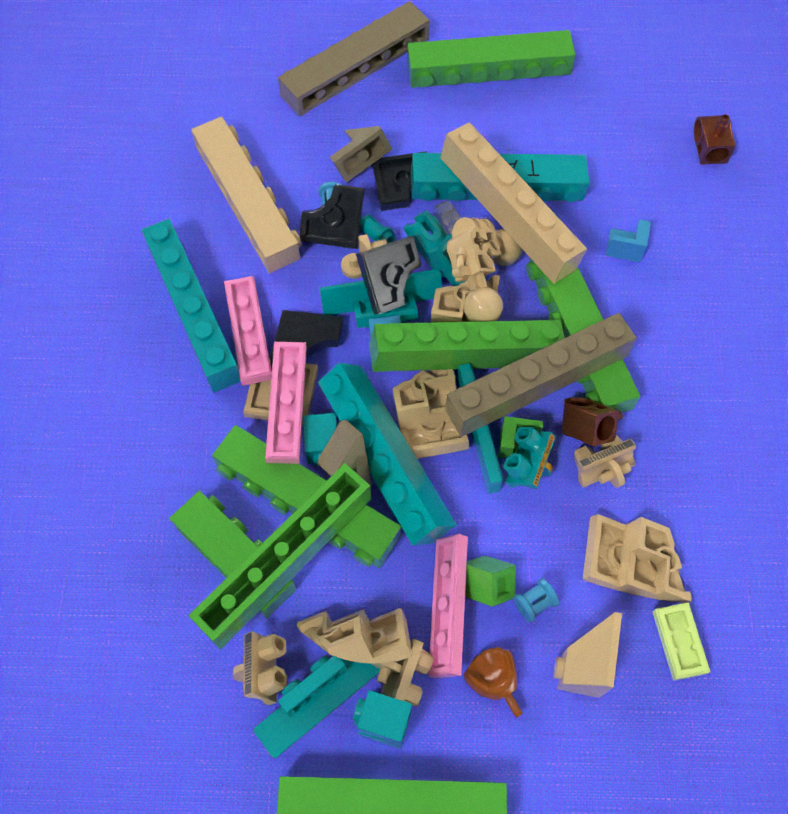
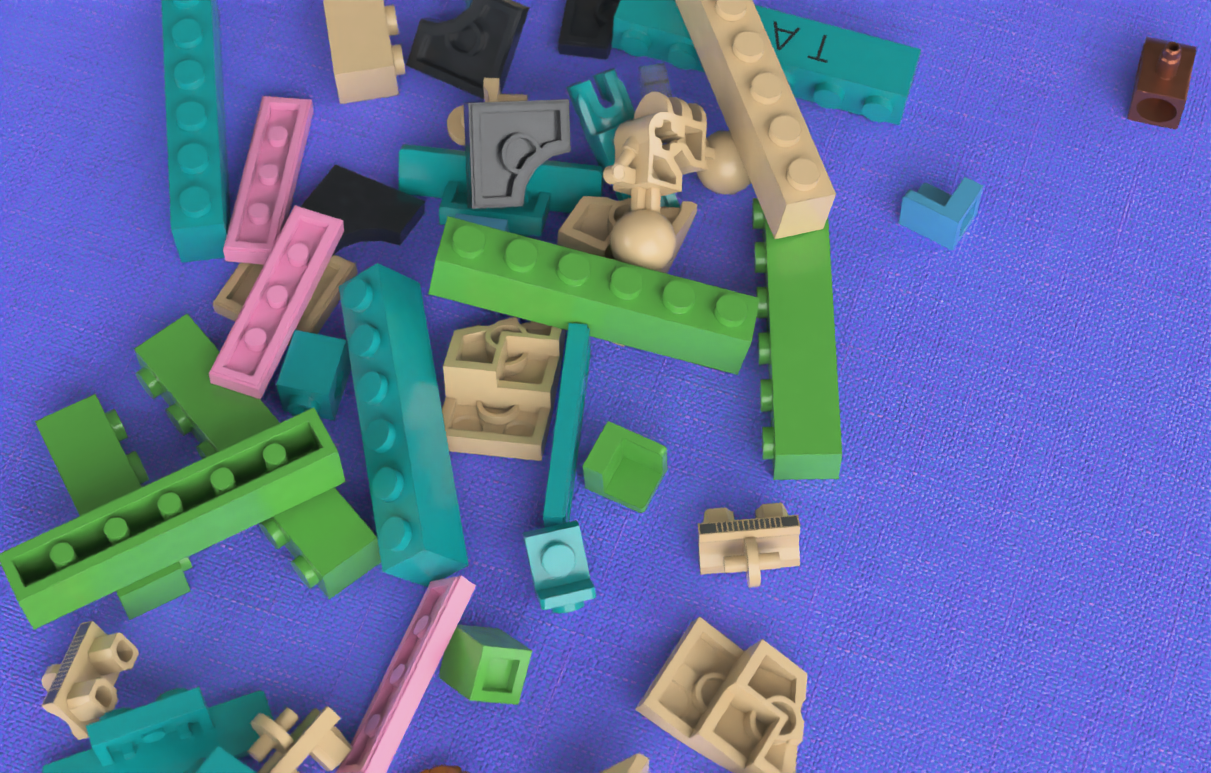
camera: 20 degrees right, 5 degrees down
(346, 447) = (337, 399): dark tan slope -> none
(361, 639) = (251, 678): tan slope -> none
(376, 230) = (532, 79): teal pin -> none
(508, 510) = (559, 567): none -> bracket
(531, 458) = (628, 502): teal hips -> none
(539, 374) = (685, 369): dark tan brick -> none
(547, 599) = (547, 716): dark azure bush -> none
(589, 421) = (746, 469): copper piece -> none

